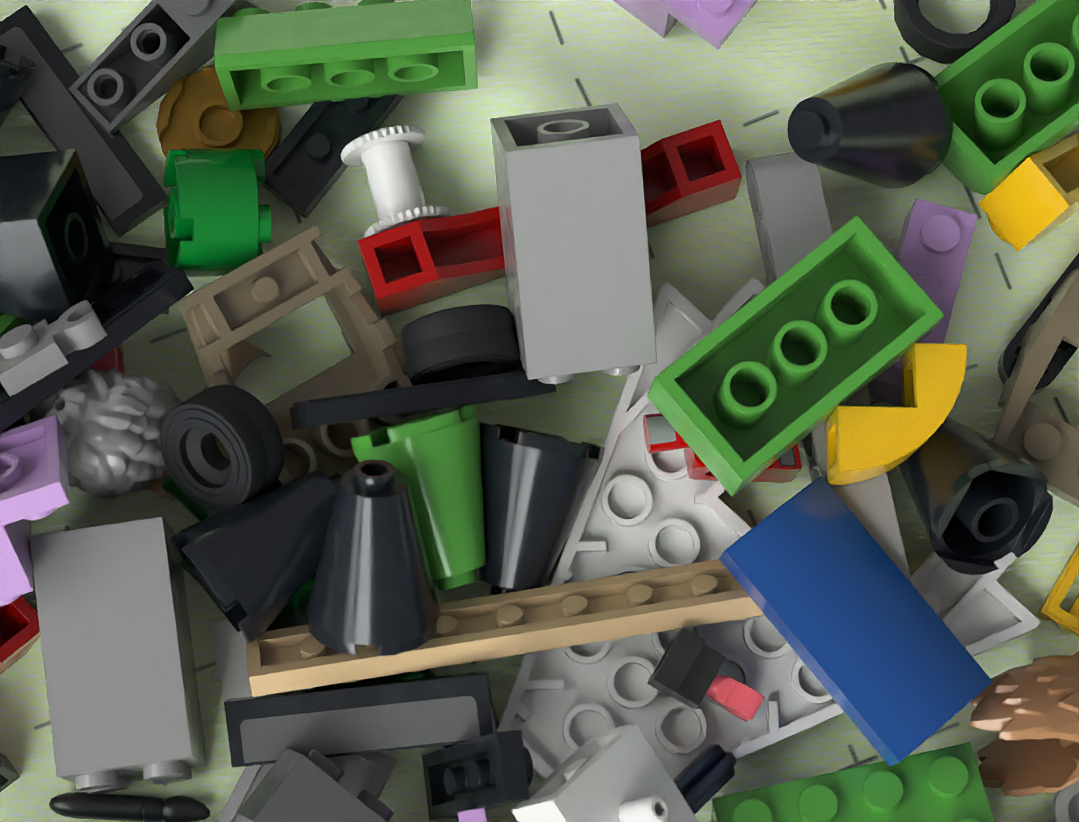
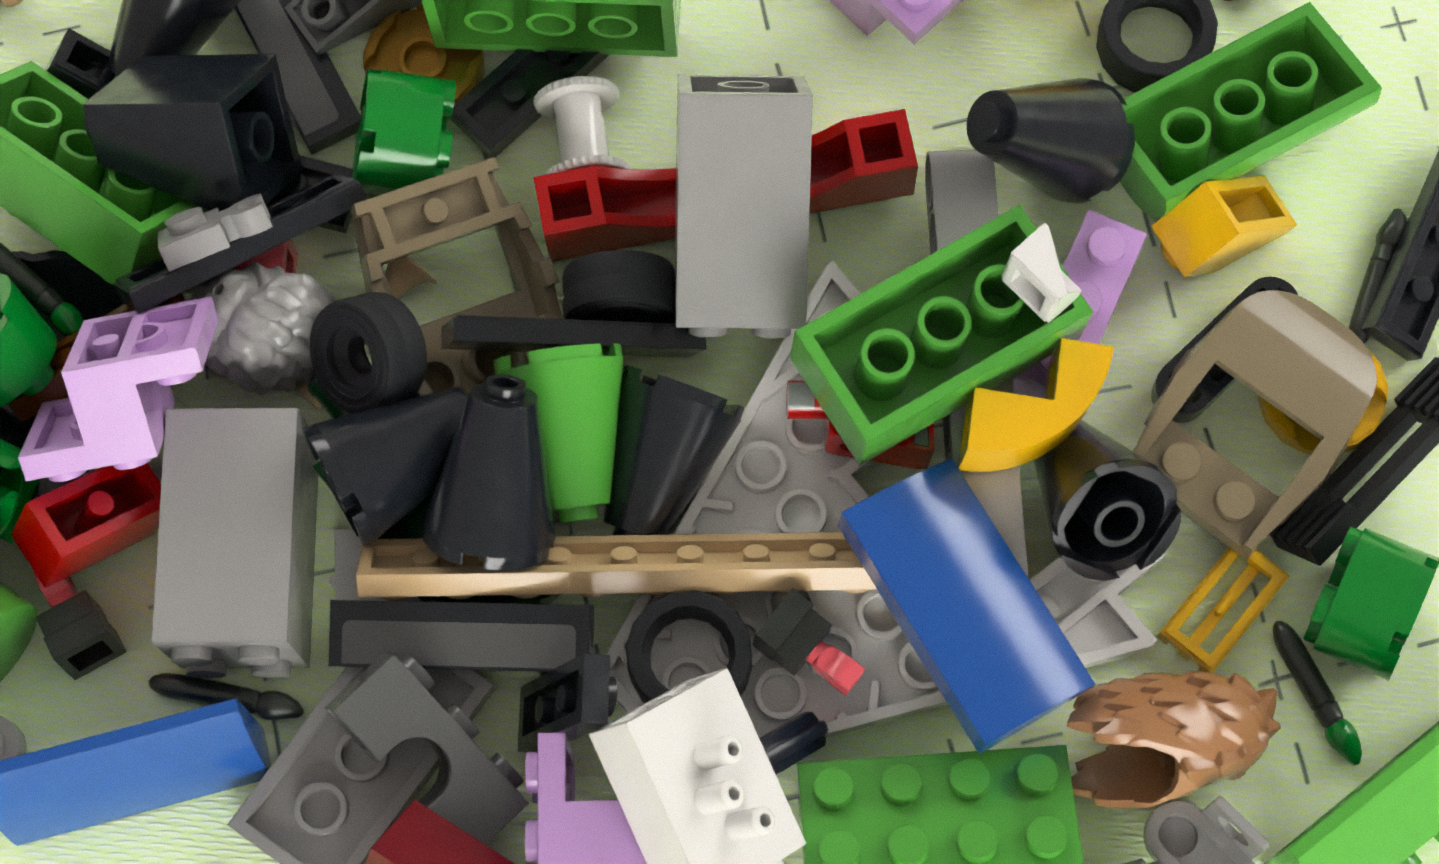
camera: 15 degrees right, 5 degrees down
(575, 658) = (684, 606): none -> black tyre
(889, 290) = (1037, 277): none -> white slope

